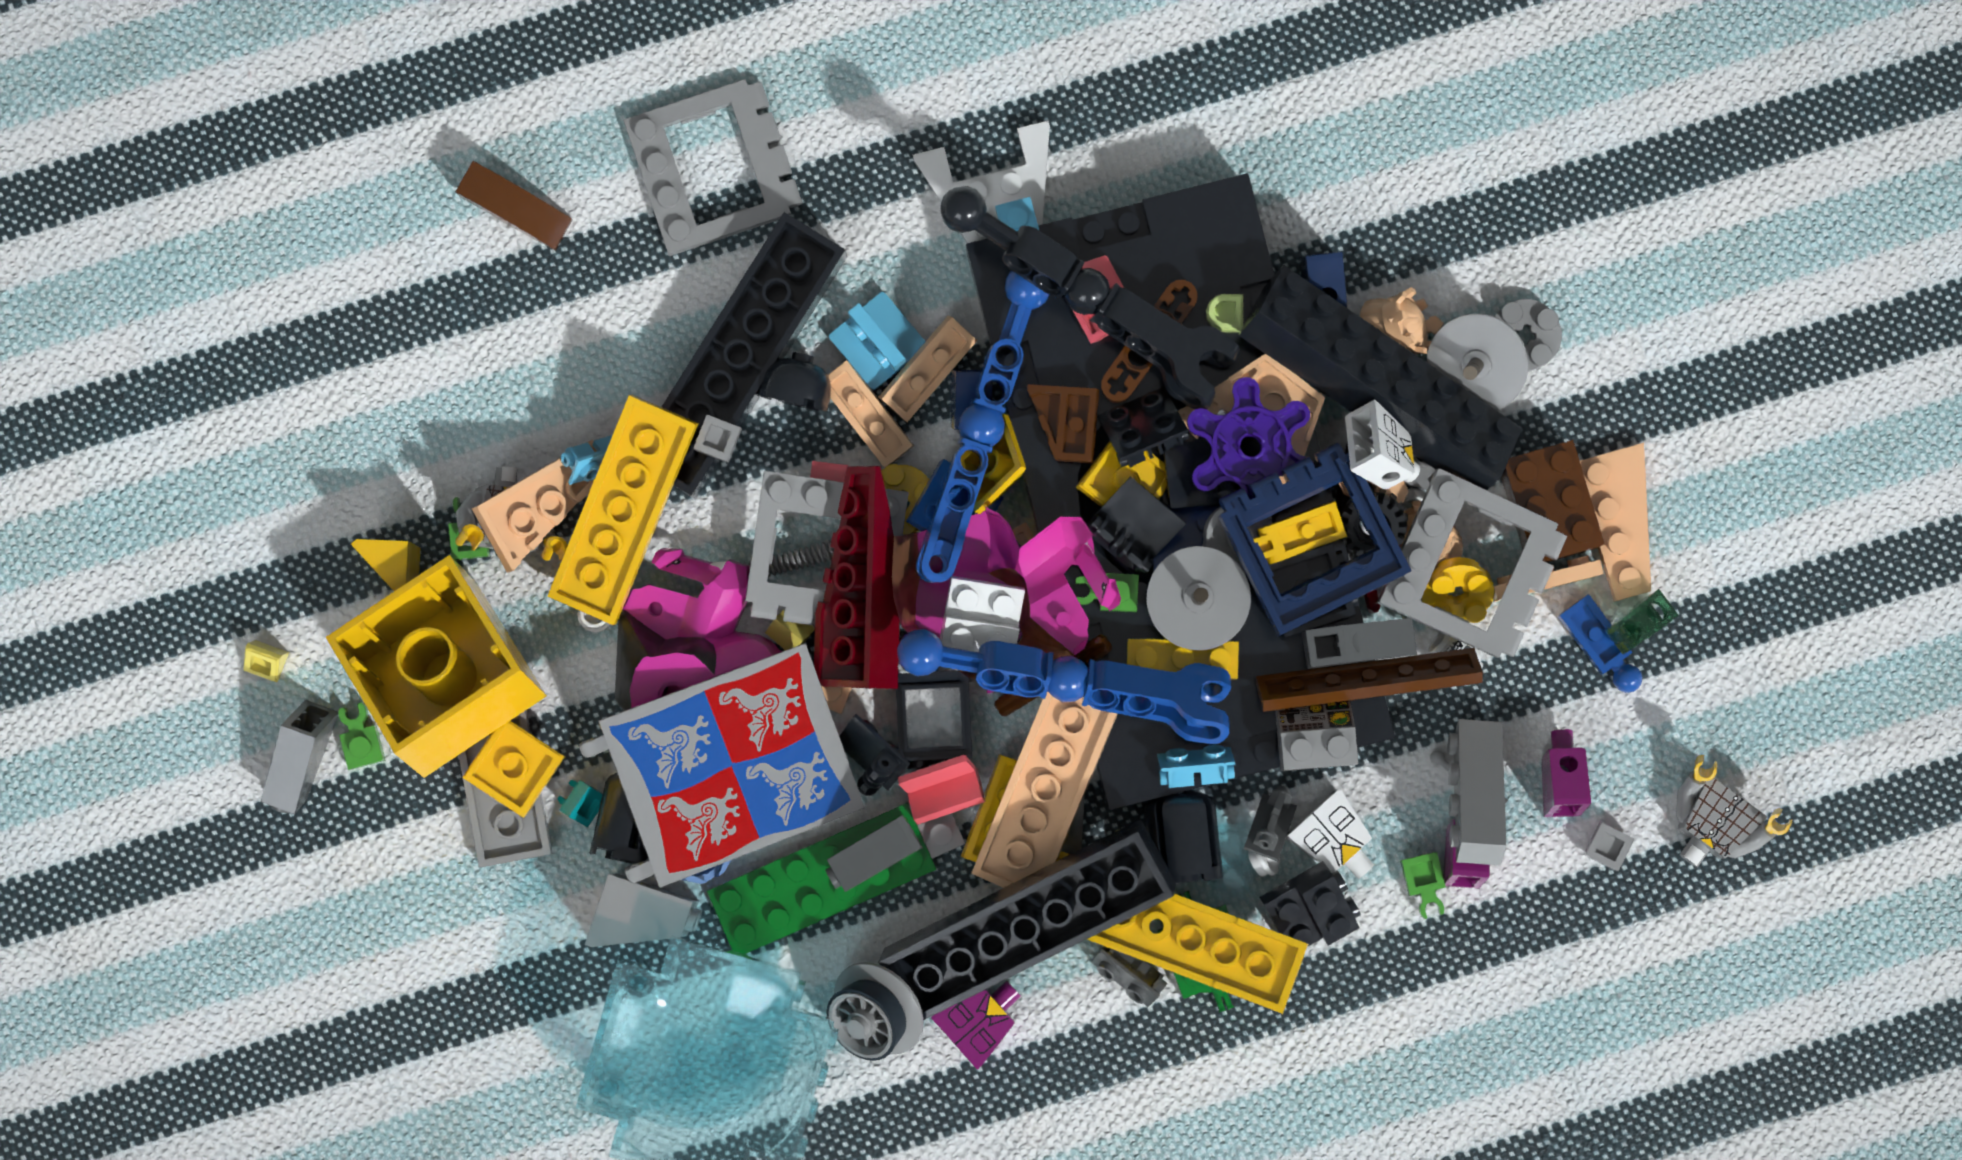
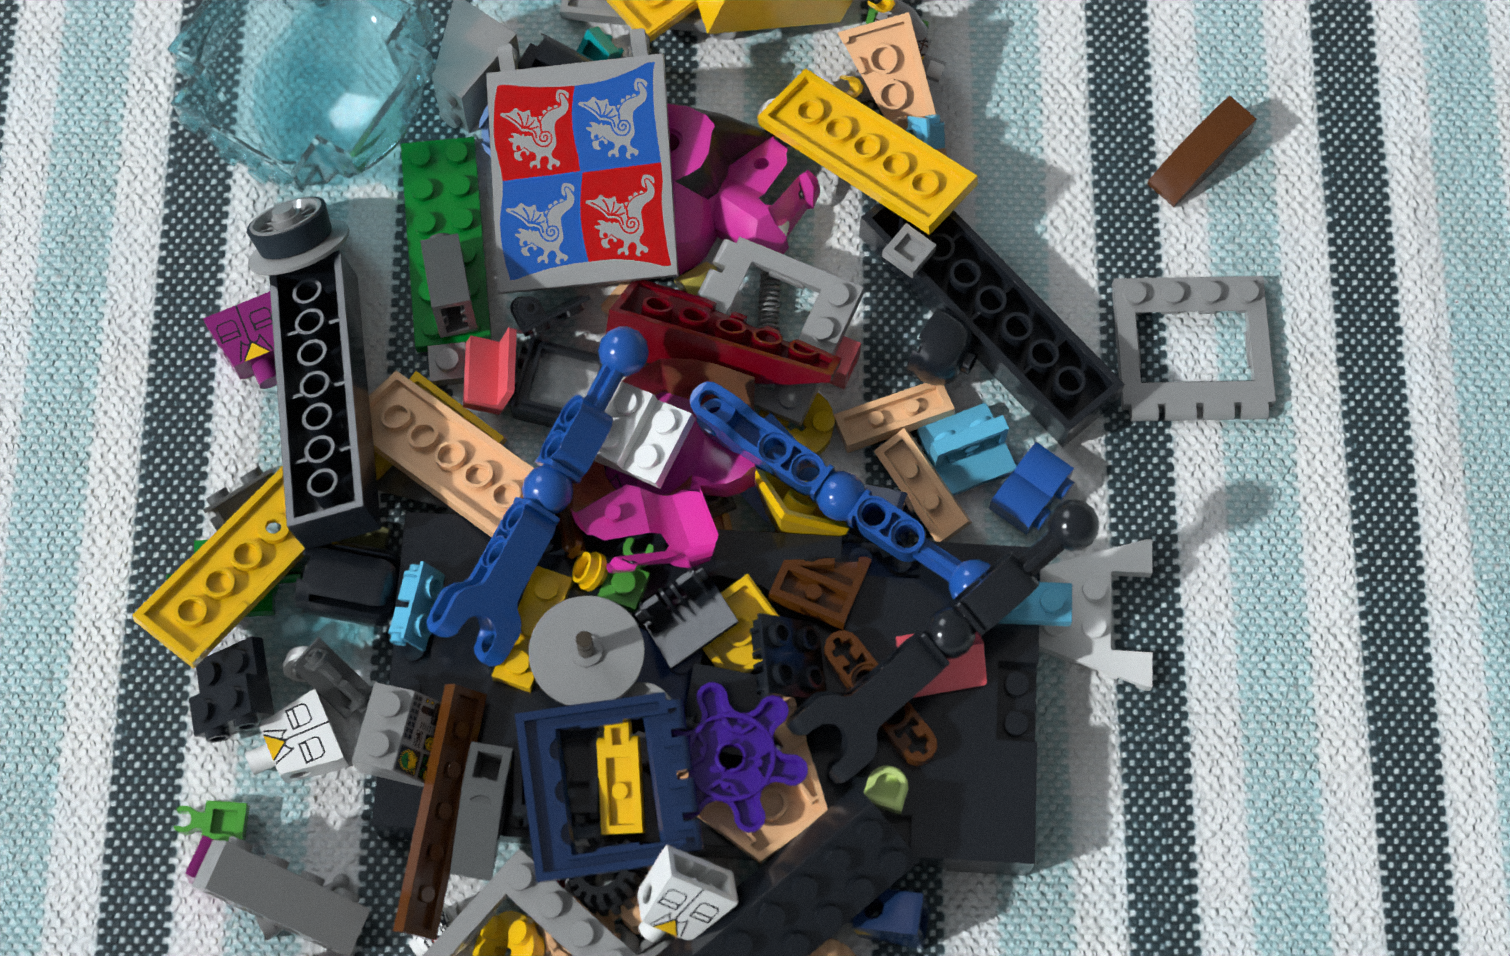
camera: 100 degrees right, 15 degrees down
(899, 271) = (1032, 488): none -> blue brick
(1117, 625) = (590, 570): none -> yellow plate

